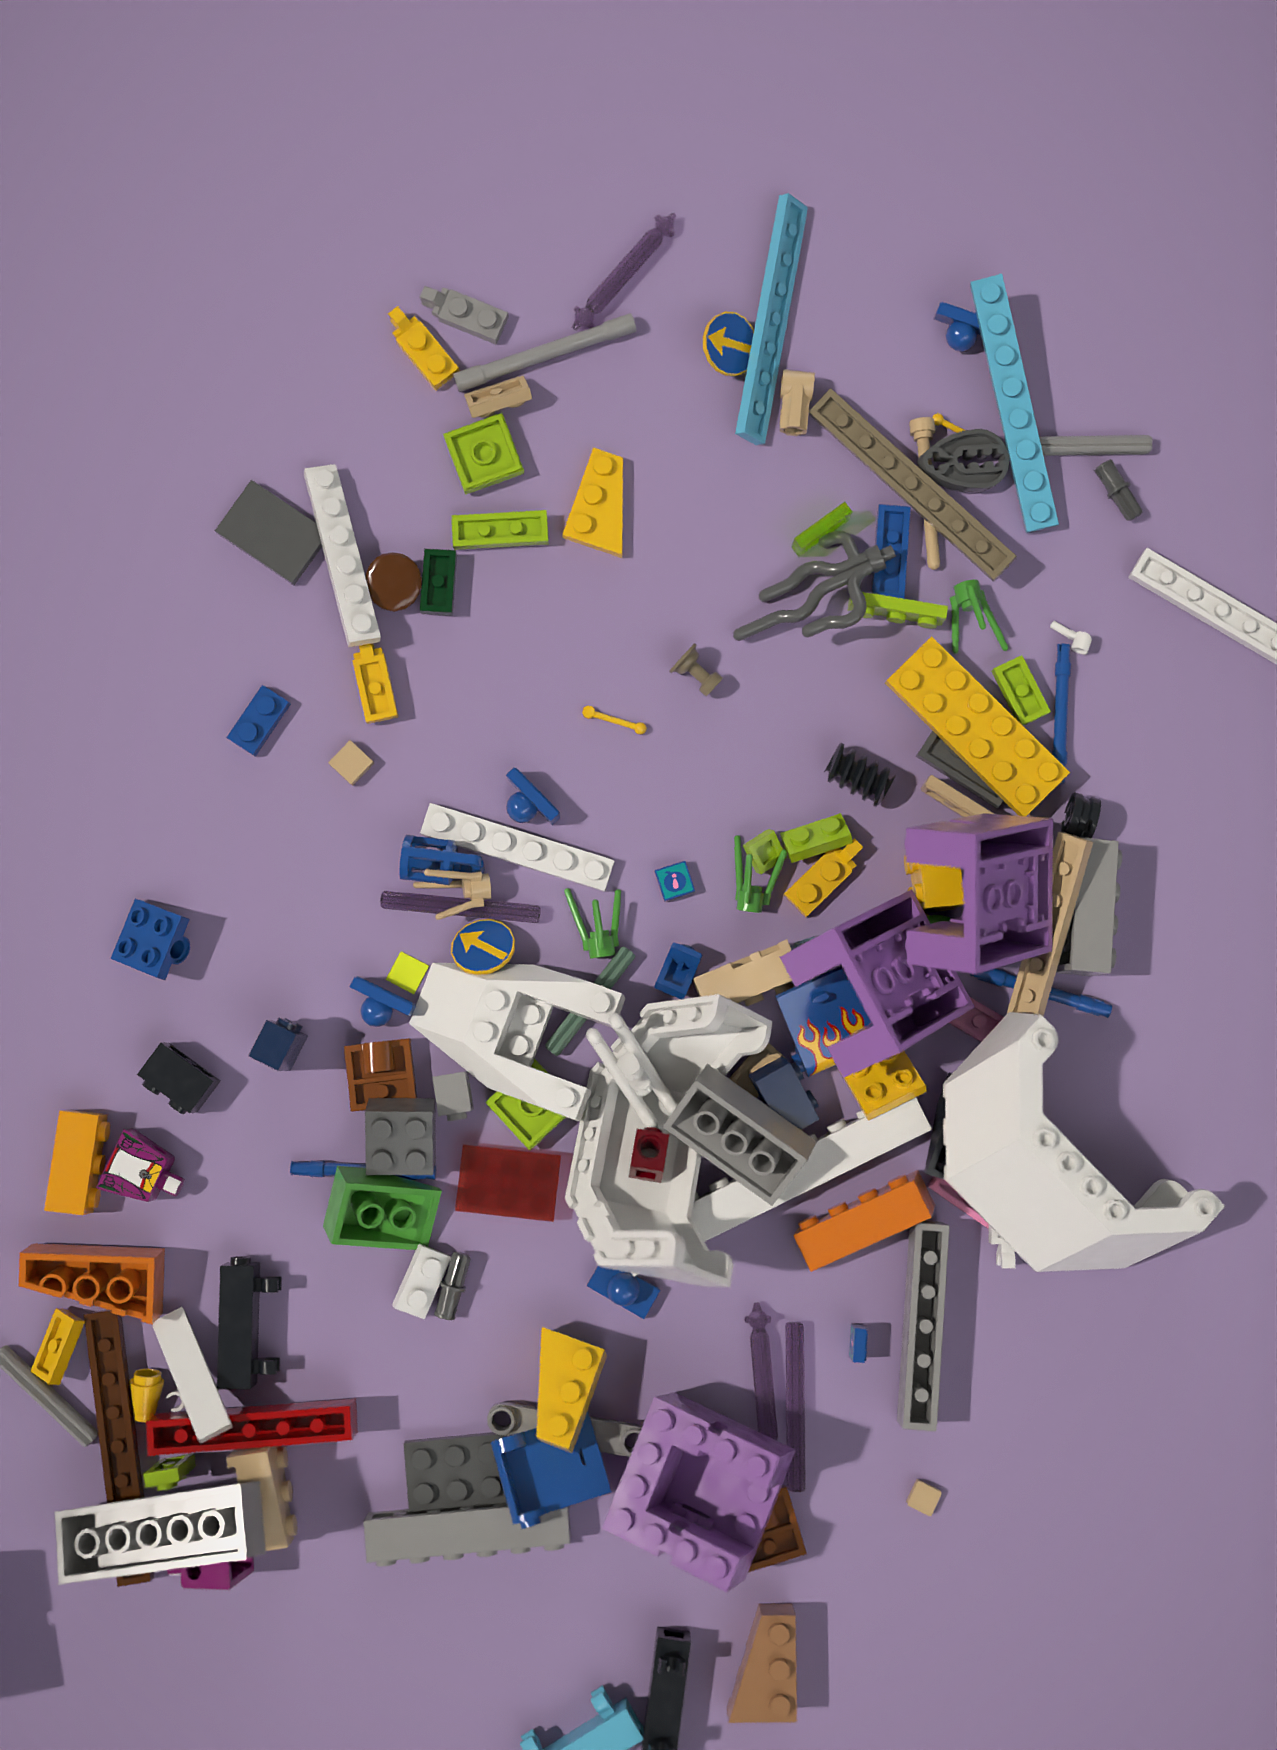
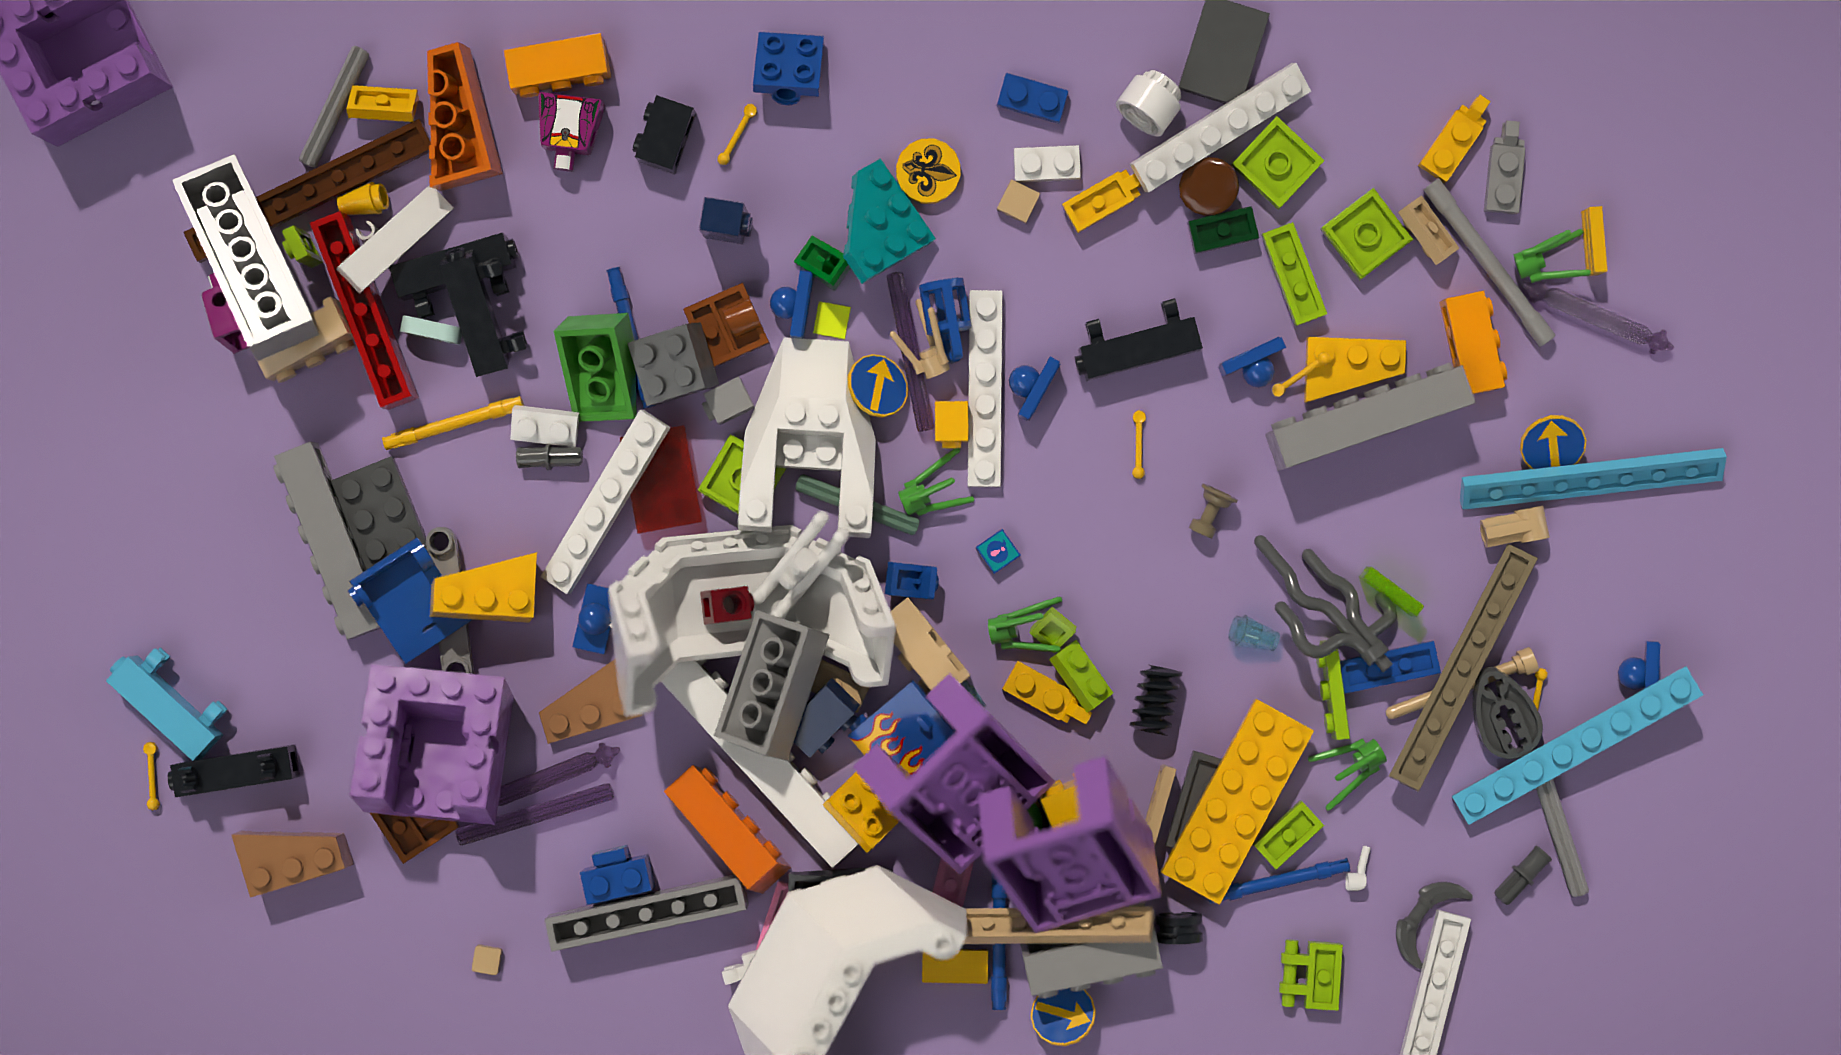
camera: 80 degrees right, 5 degrees up
(184, 990) = (750, 111): none -> yellow hinge
(288, 1316) = (474, 310): none -> black brick
(293, 1365) = (431, 330): none -> light aqua beam
(295, 838) = (928, 171): none -> tile
(297, 611) = (1150, 102): none -> white piece
(324, 725) = (1046, 163): none -> white plate
(330, 896) = (881, 223): none -> teal plate
(349, 961) = (823, 262): none -> green slope
(391, 1326) = (412, 435): none -> yellow piece
(392, 513) = (1277, 162): none -> lime plate
(513, 1244) = (605, 501): none -> white plate
(524, 691) = (1138, 348): none -> black brick
(540, 888) = (951, 423): none -> yellow brick
(554, 311) = (1531, 259): none -> bright green plant
(555, 253) = (1594, 240): none -> yellow tile
(576, 589) = (1257, 368): none -> blue tile
(587, 525) = (1279, 389): none -> yellow hinge
(614, 388) = (1473, 340): none -> light orange brick
(655, 496) = (1377, 415): none -> light grey brick
(706, 1323) = (585, 707): none -> medium nougat wing
(823, 668) = (1252, 634): none -> clear light blue cone
(883, 1343) = (617, 879): none -> blue brick
(1067, 1026) = (966, 966): none -> yellow tile
(1137, 608) = (1407, 927): none -> dark grey piece
(1138, 951) = (1063, 1017): none -> blue piece
(1160, 699) = (1322, 974): none -> lime plate

